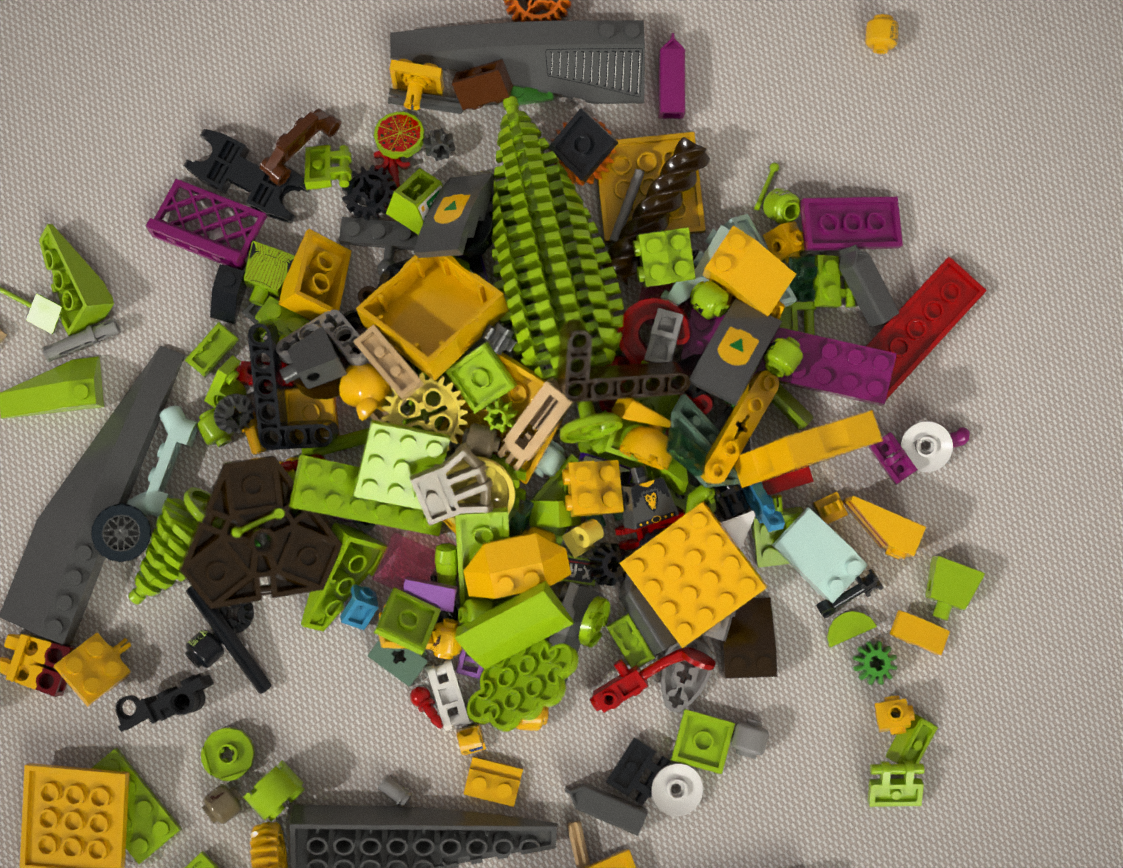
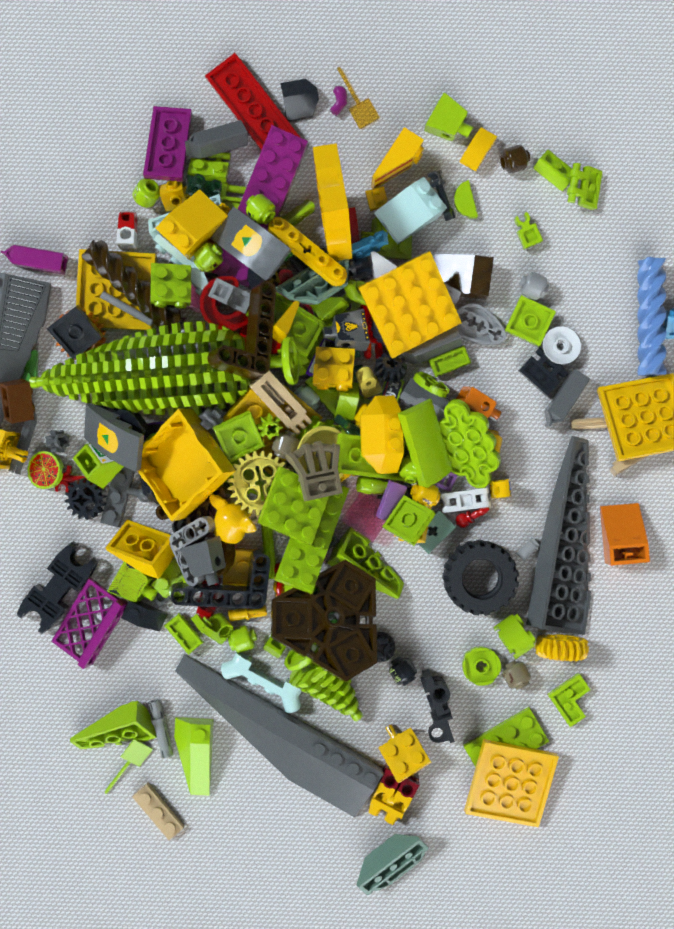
camera: 75 degrees left, 5 degrees up
(121, 532) = (309, 720): black wheel -> none
(210, 471) = (274, 647): none -> lime slope
(225, 409) = (229, 629): dark grey gear -> none
(231, 642) = (403, 650): black axle -> none
(277, 513) = (315, 602): lime hinge -> none
(294, 140) = (35, 547): reddish brown plate -> none
(319, 167) = (60, 533): lime plate -> none
(321, 757) = (498, 595): none -> black tyre
(360, 607) = (392, 553): dark azure bracket -> none
(388, 363) = (216, 503): tan plate -> none
(493, 781) = (532, 477): yellow plate -> none
(582, 682) = (475, 399): none -> orange torso
(634, 680) = (478, 362): red piece -> none
(648, 446) = (310, 320): yellow cylinder -> none
(686, 451) = (319, 292): clear green plate -> none
(729, 189) = (127, 231): none -> leg
(774, 167) = (116, 194): lime hinge -> none
(818, 720) = (528, 234): none -> lime plate
(878, 653) = (499, 180): bright green gear -> none
(882, 33) = (27, 95): yellow head -> none
(887, 722) = (538, 184): yellow brick -> none
(896, 470) = (355, 143): magenta hips -> none
(915, 684) = (514, 159): none -> dark brown head
(940, 445) = (350, 112): white dish -> none
(942, 384) = (299, 99): none -> black slope
(945, 476) = (363, 112): none -> clear yellow piece

